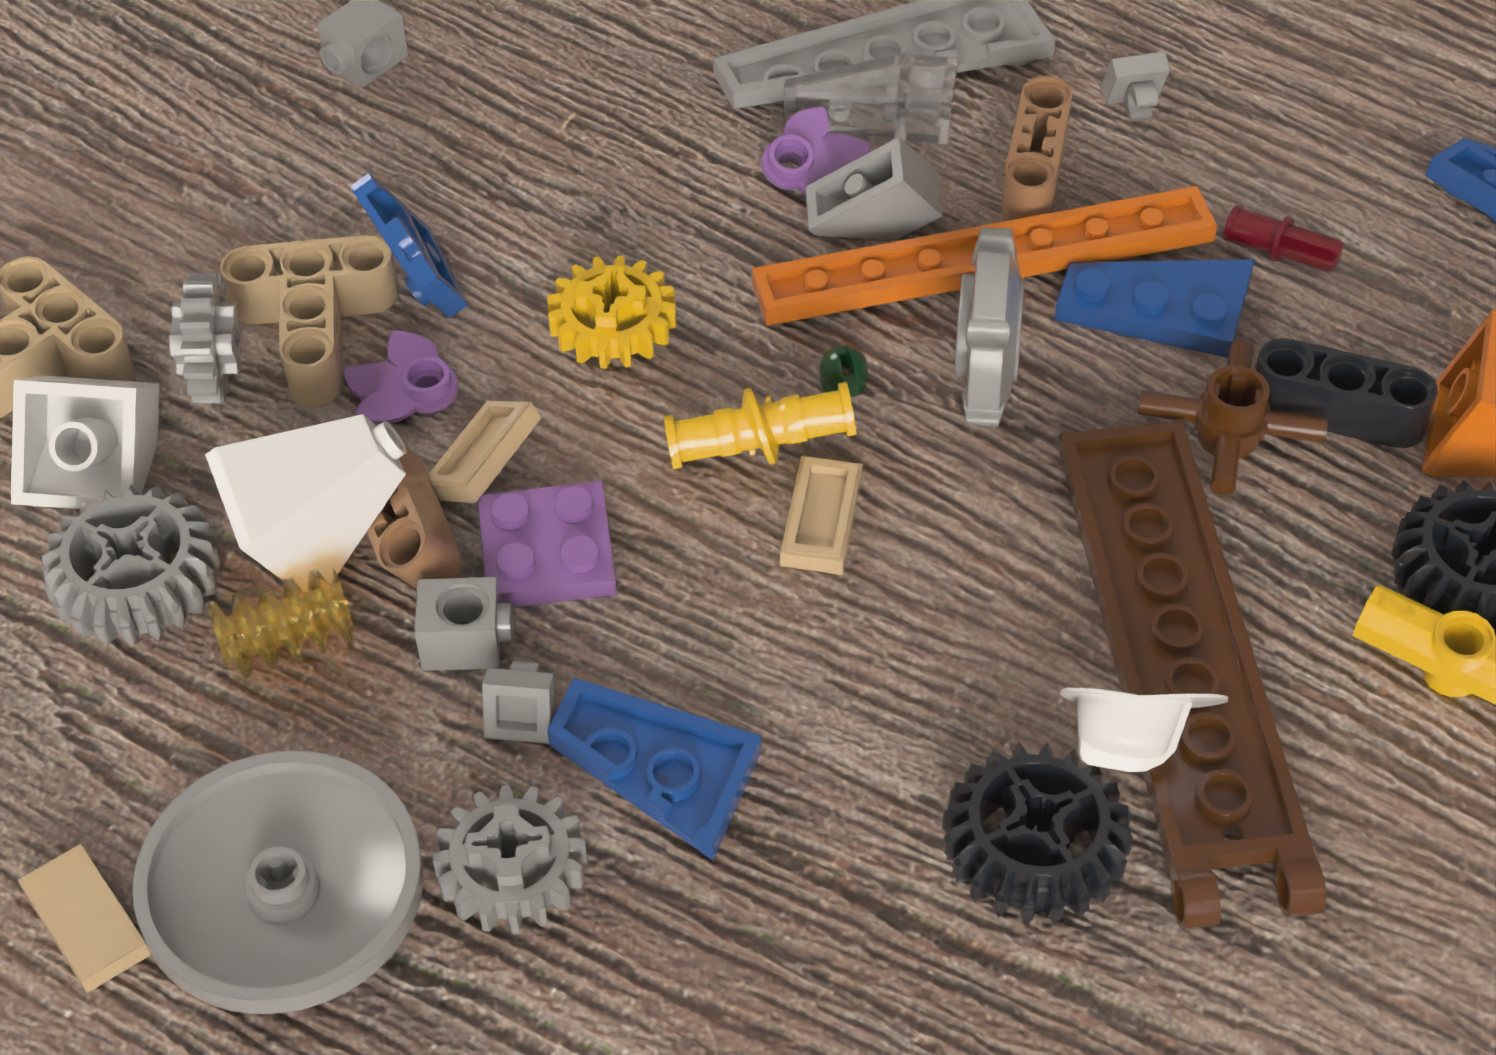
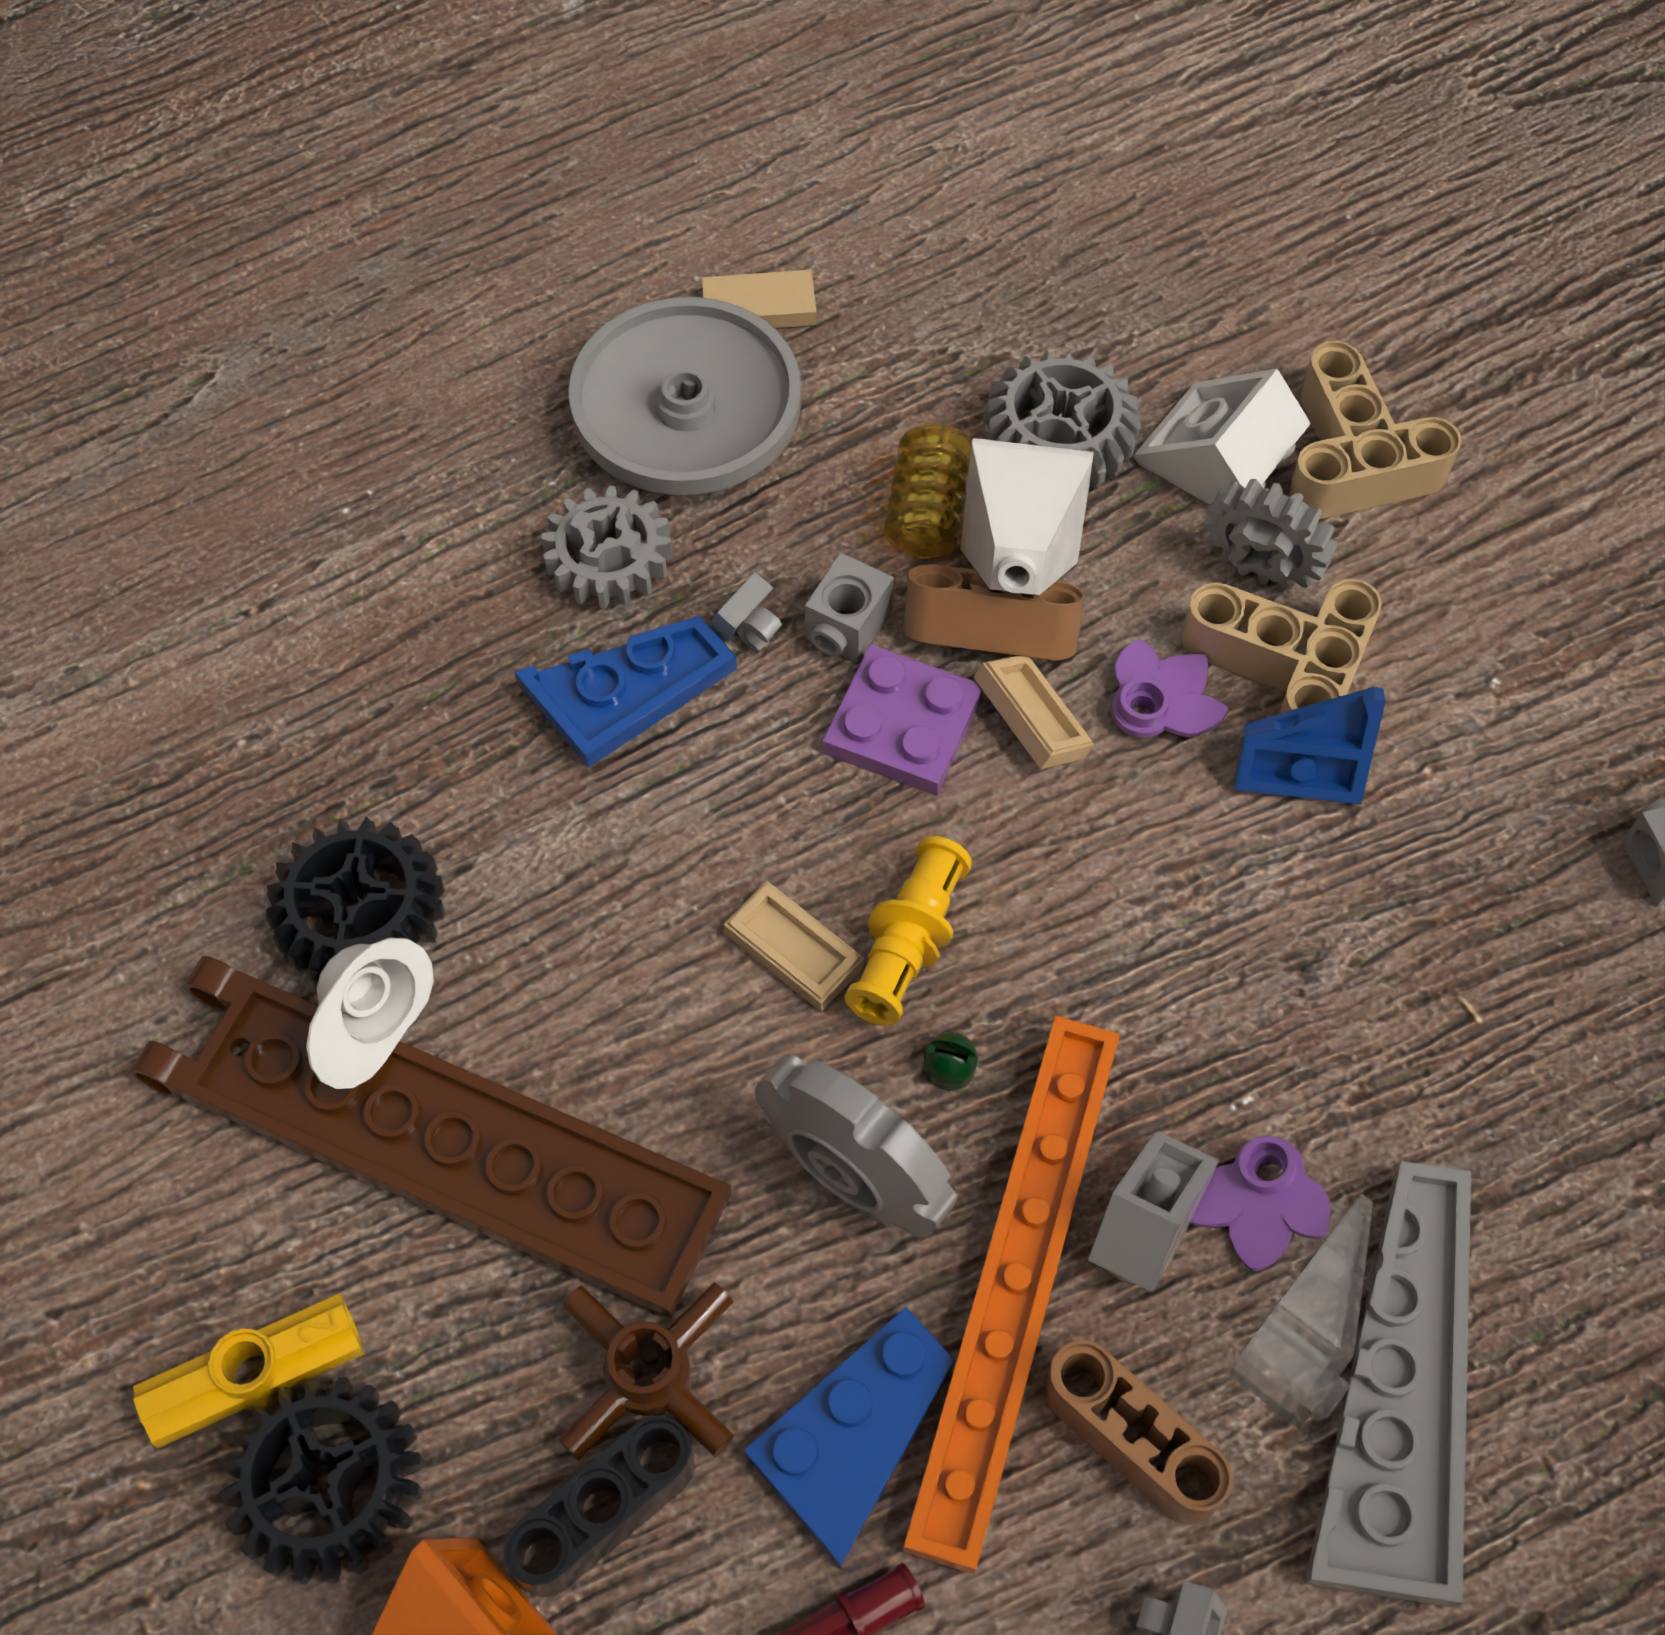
camera: 120 degrees right, 10 degrees up
(612, 311) = (1154, 910): yellow gear -> none

